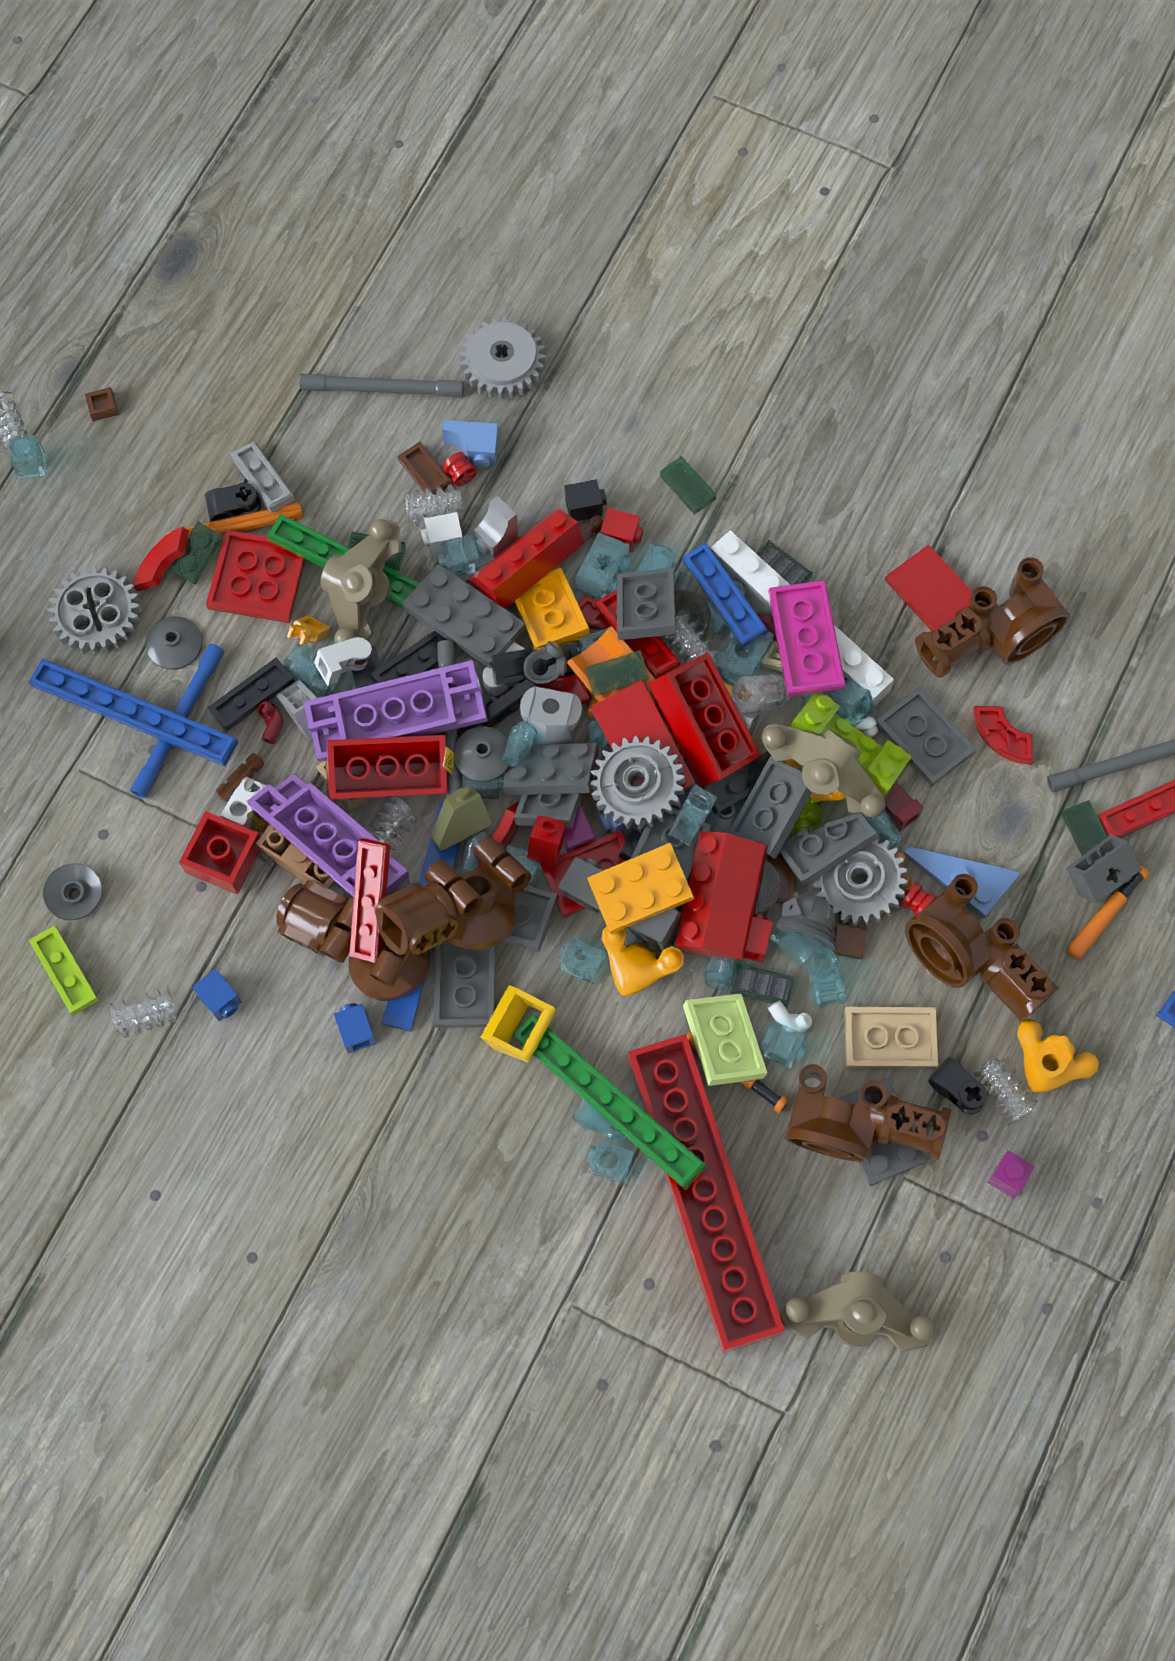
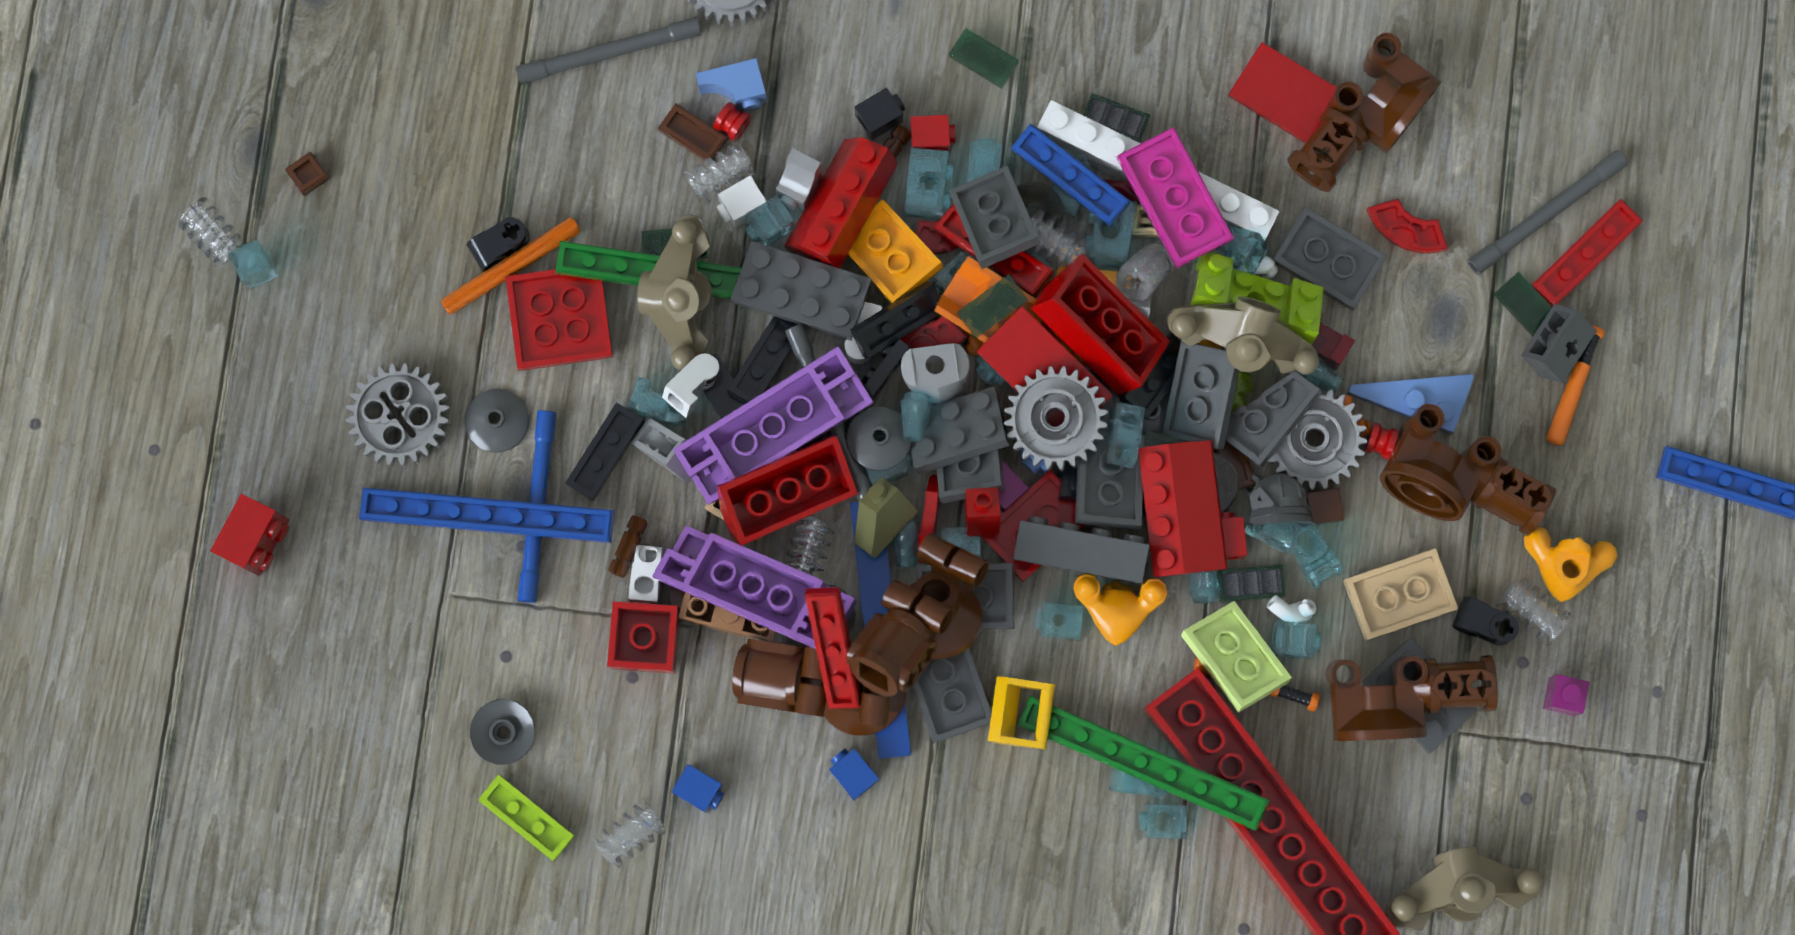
camera: 20 degrees left, 10 degrees up
(160, 558) = (446, 333): red tile -> none
(199, 550) = (483, 313): clear green plate -> none
(259, 823) = (668, 591): clear yellow piece -> none
(262, 477) = (520, 201): light grey tile -> none
(273, 720) = (638, 471): dark red arm -> none
(309, 630) = (639, 360): light orange plate -> none
(448, 760) = (848, 459): yellow sticker -> none
(549, 651) = (913, 303): dark grey piece -> none
(640, 888) = (1101, 533): light orange plate -> none

